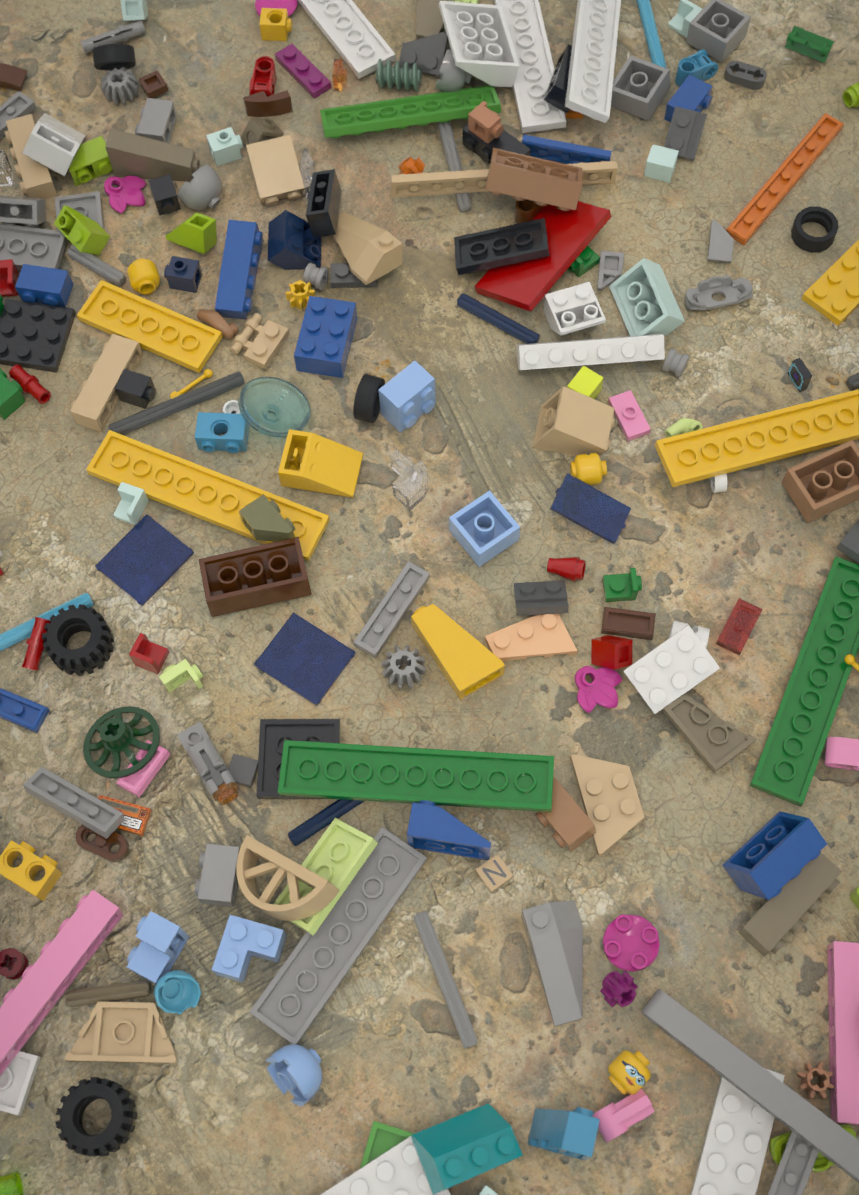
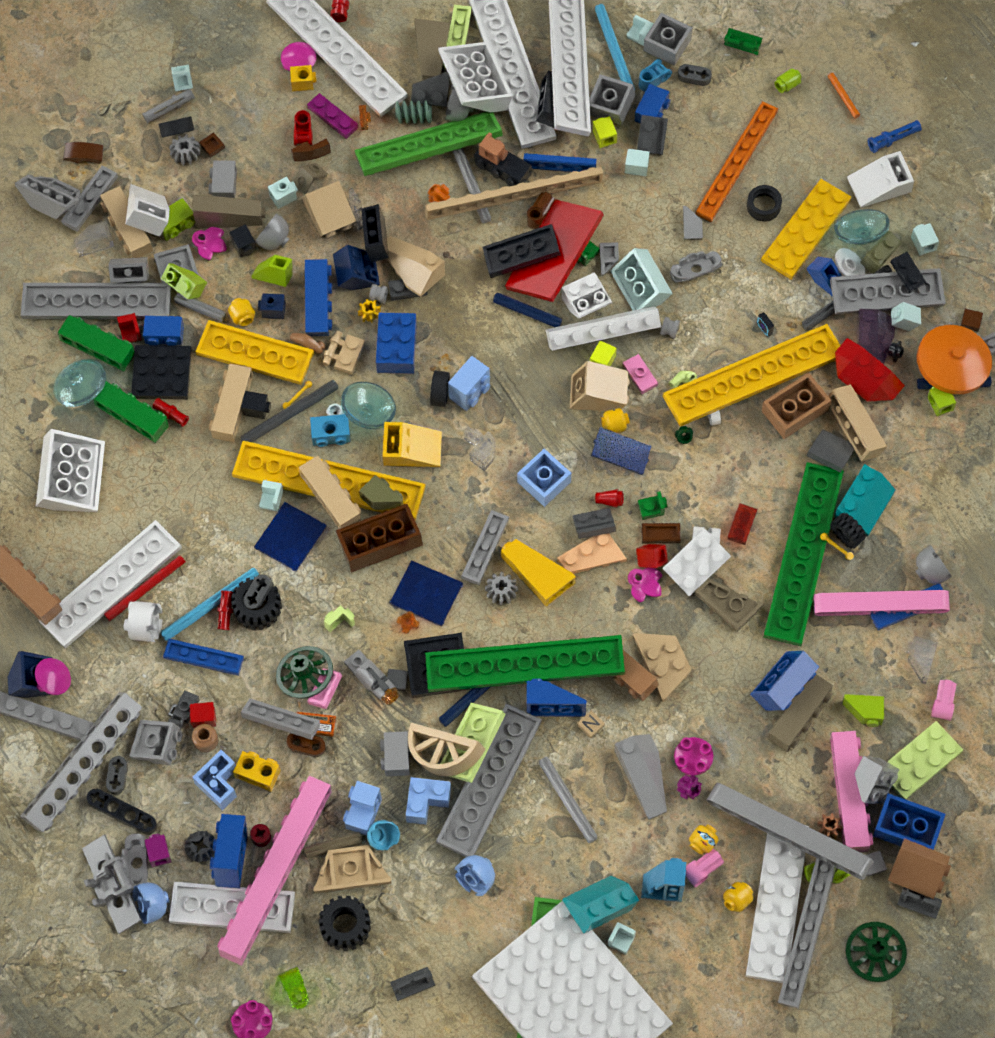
camera: 10 degrees left, 0 degrees up
(79, 626) = (262, 593): none -> dark grey beam
(148, 654) = (310, 607): red panel -> none
(201, 509) = (329, 492): none -> tan brick
(275, 687) = (409, 616): none -> clear orange plate
(534, 179) = (539, 193): medium nougat slope -> none
(626, 124) = (604, 132): none -> neon yellow brick
(668, 1170) = (738, 896): none -> yellow head
(680, 503) = (684, 439): none -> dark green plate

